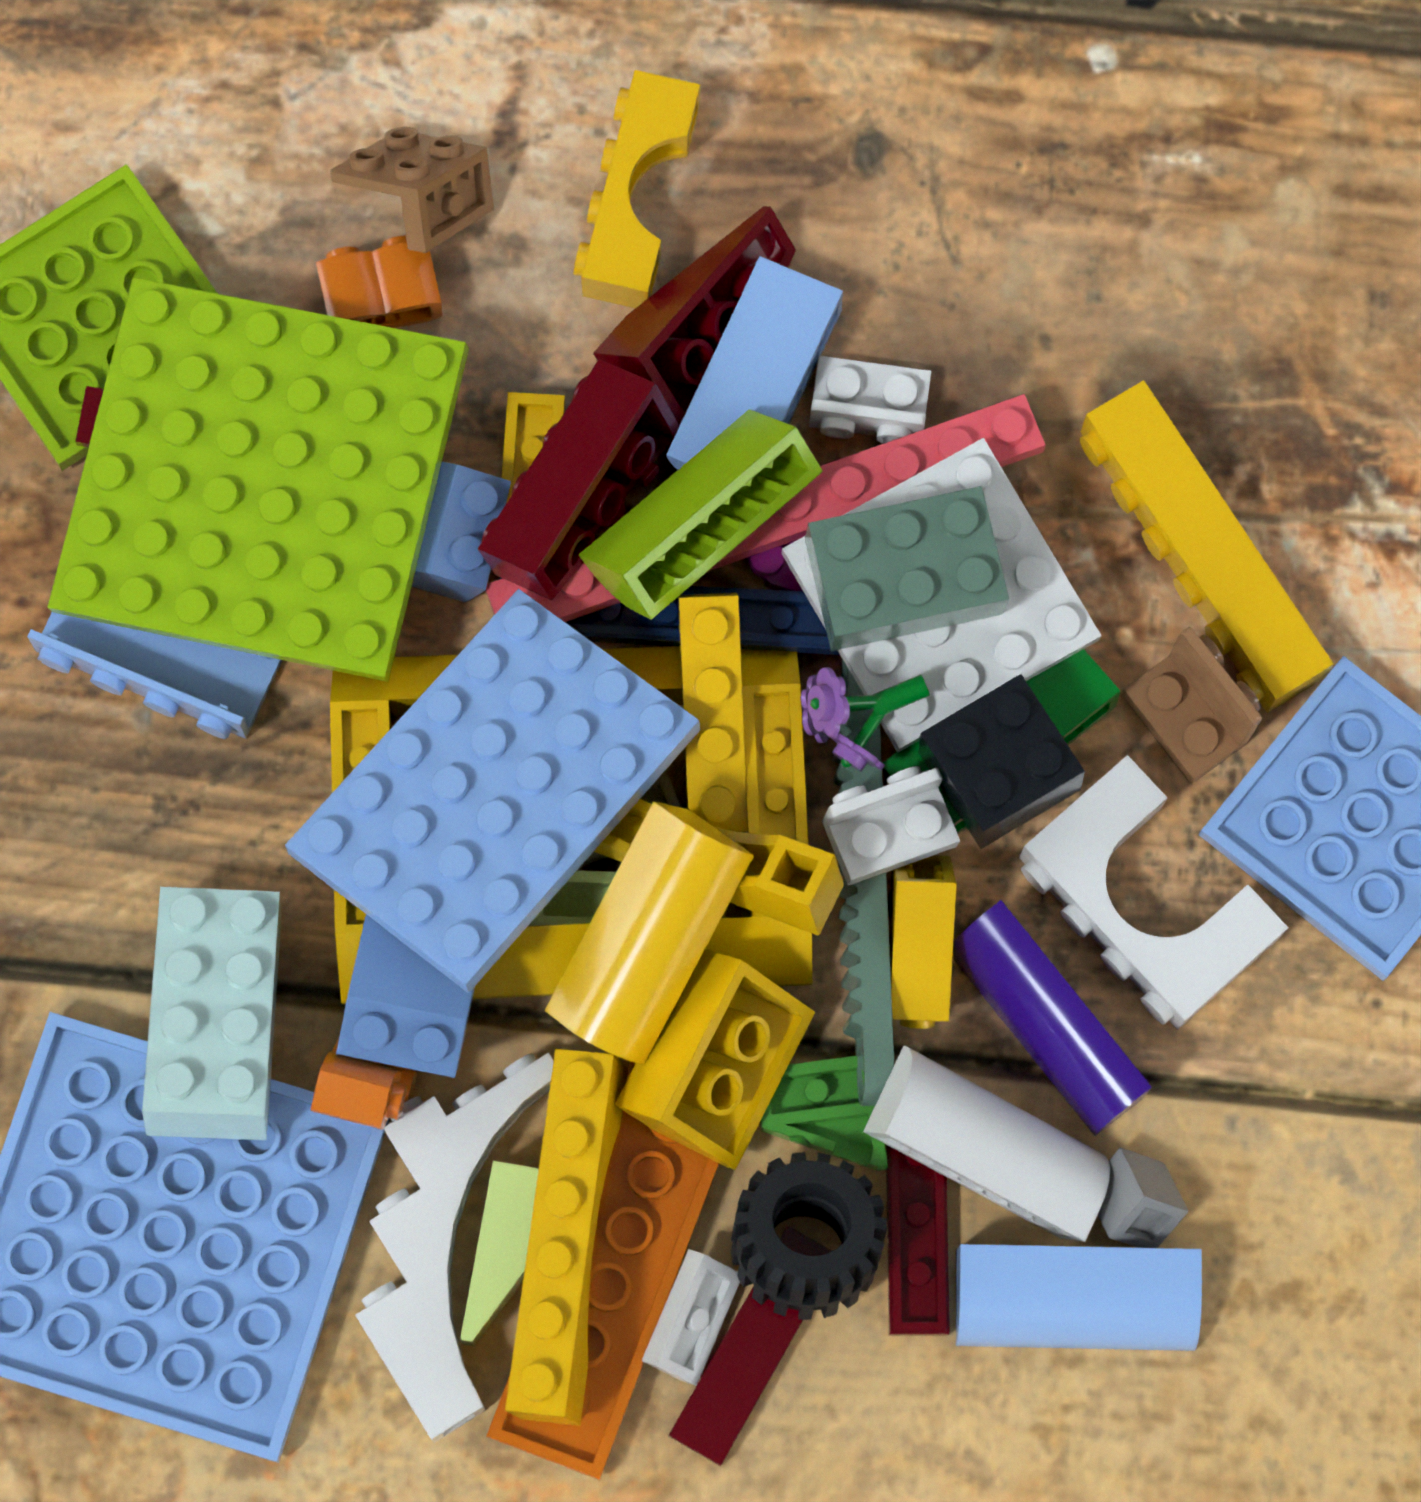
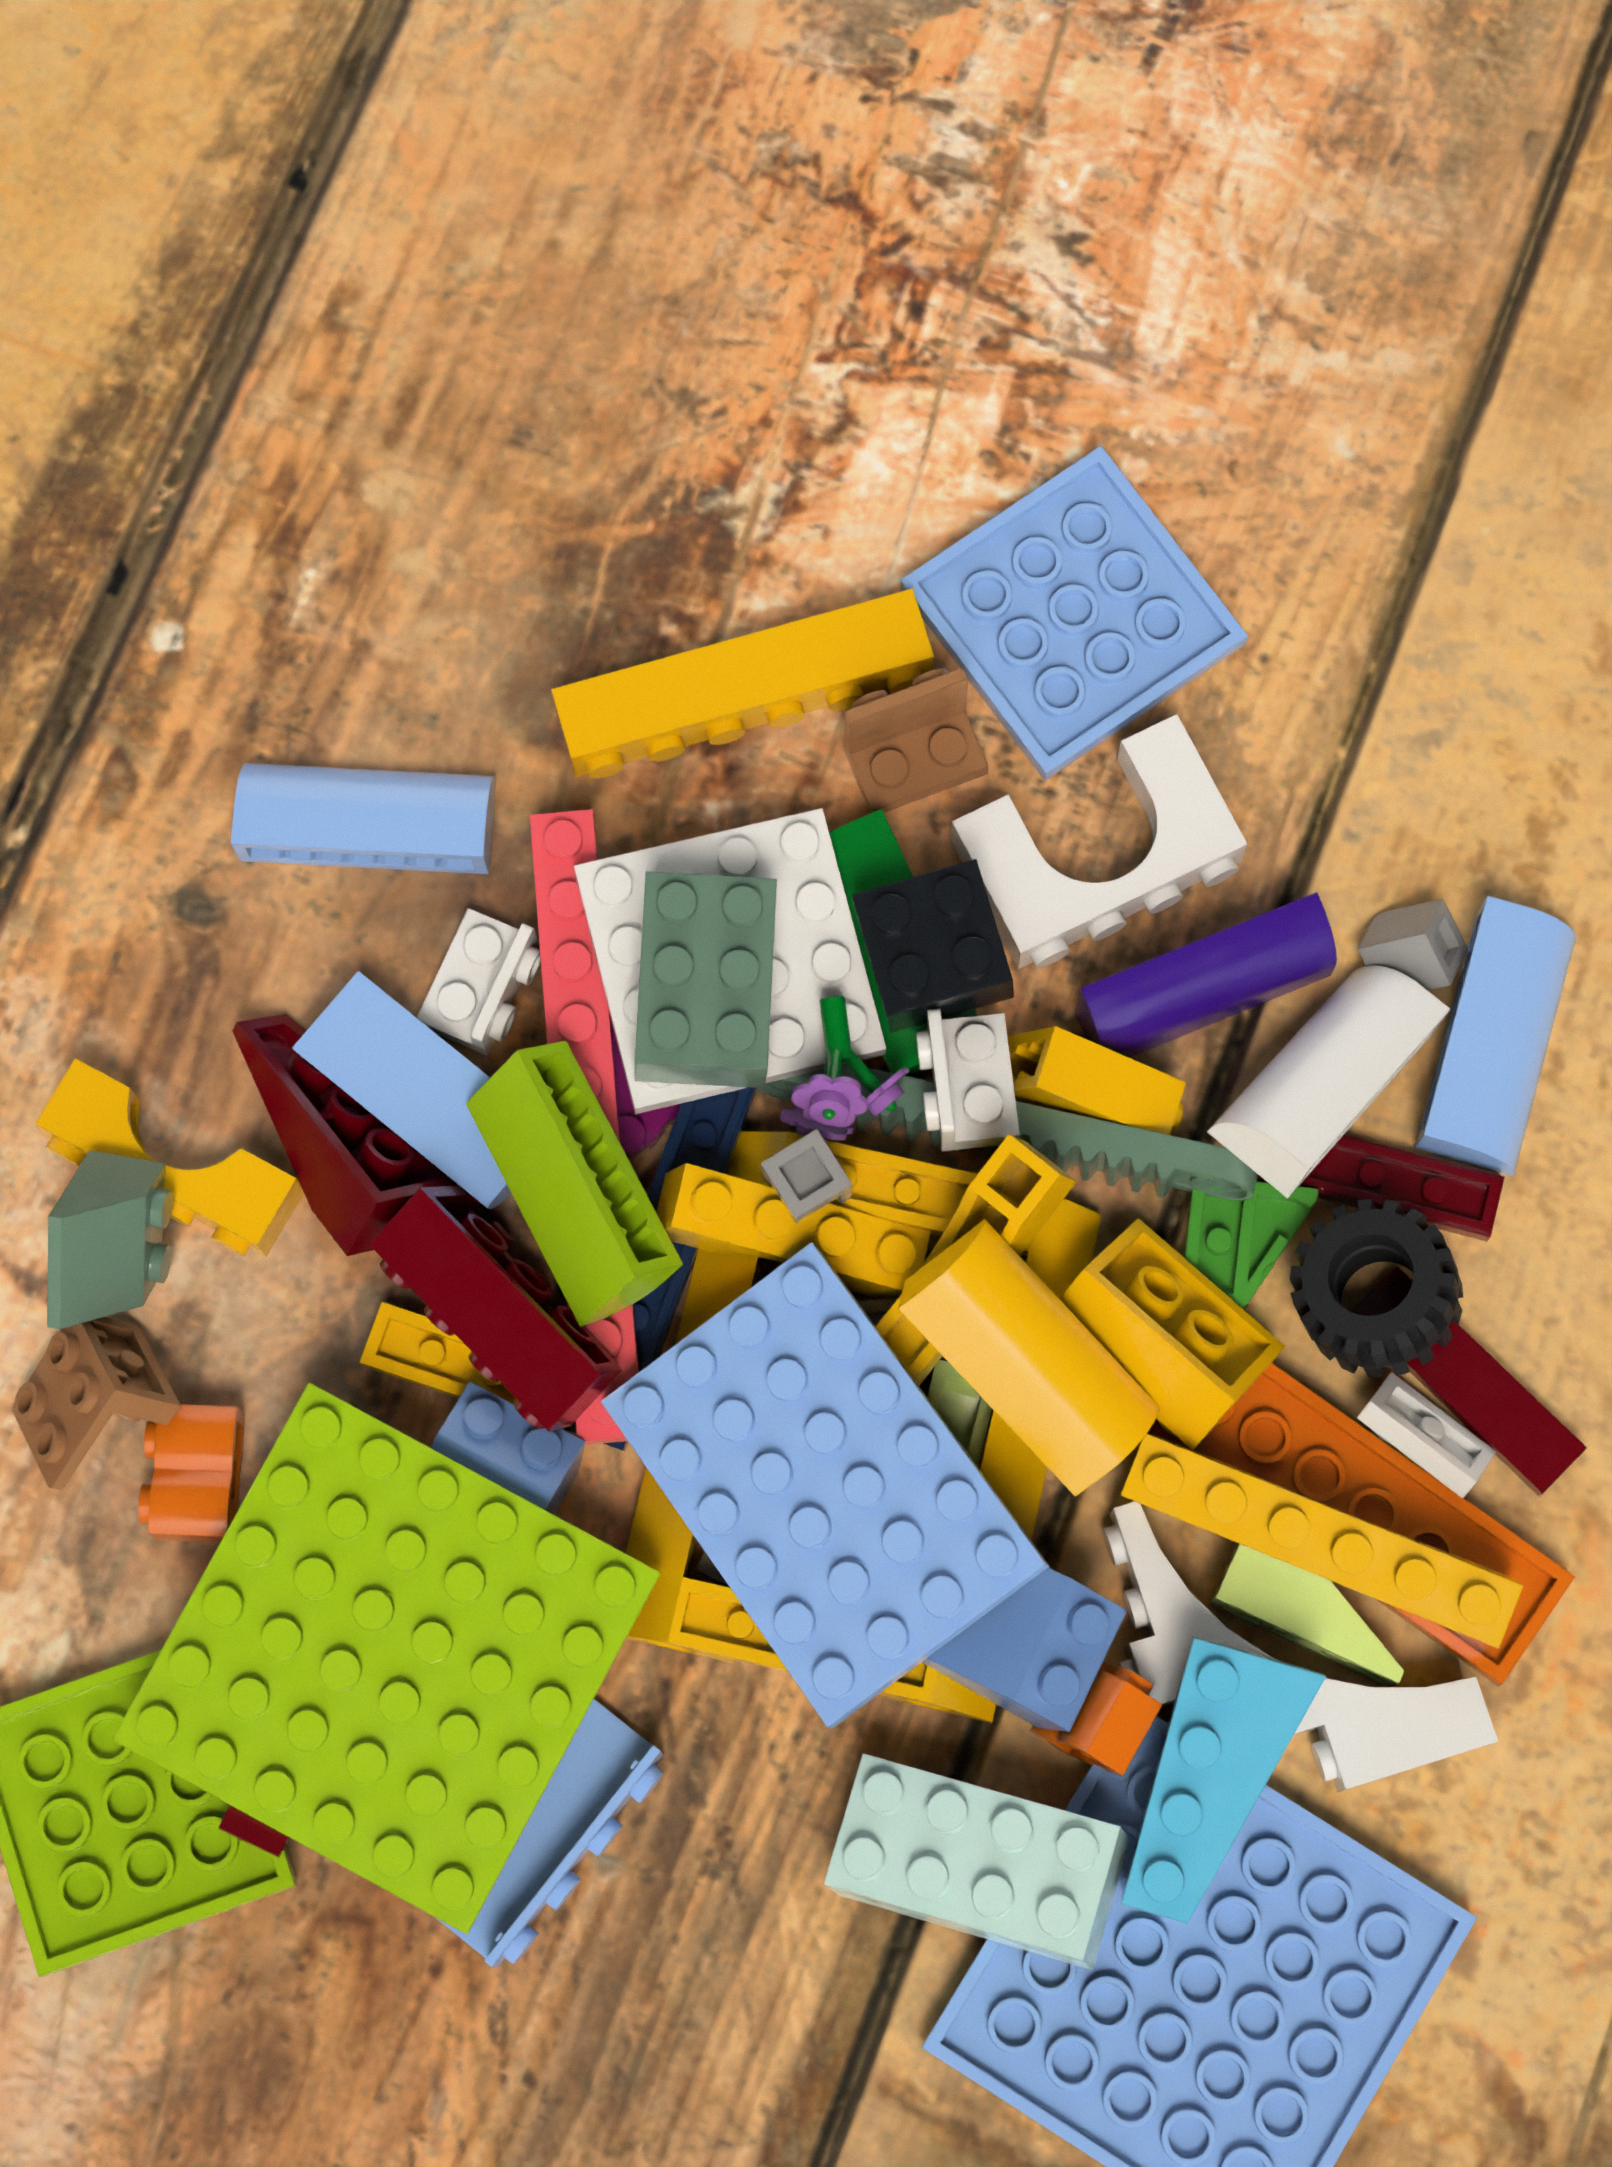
camera: 70 degrees left, 0 degrees up
(345, 1187) = (1216, 1758): none -> medium azure wedge
(548, 151) = (107, 1239): none -> sand green slope
(757, 702) = (806, 1176): none -> light grey panel
(987, 262) = (363, 818): none -> light blue brick

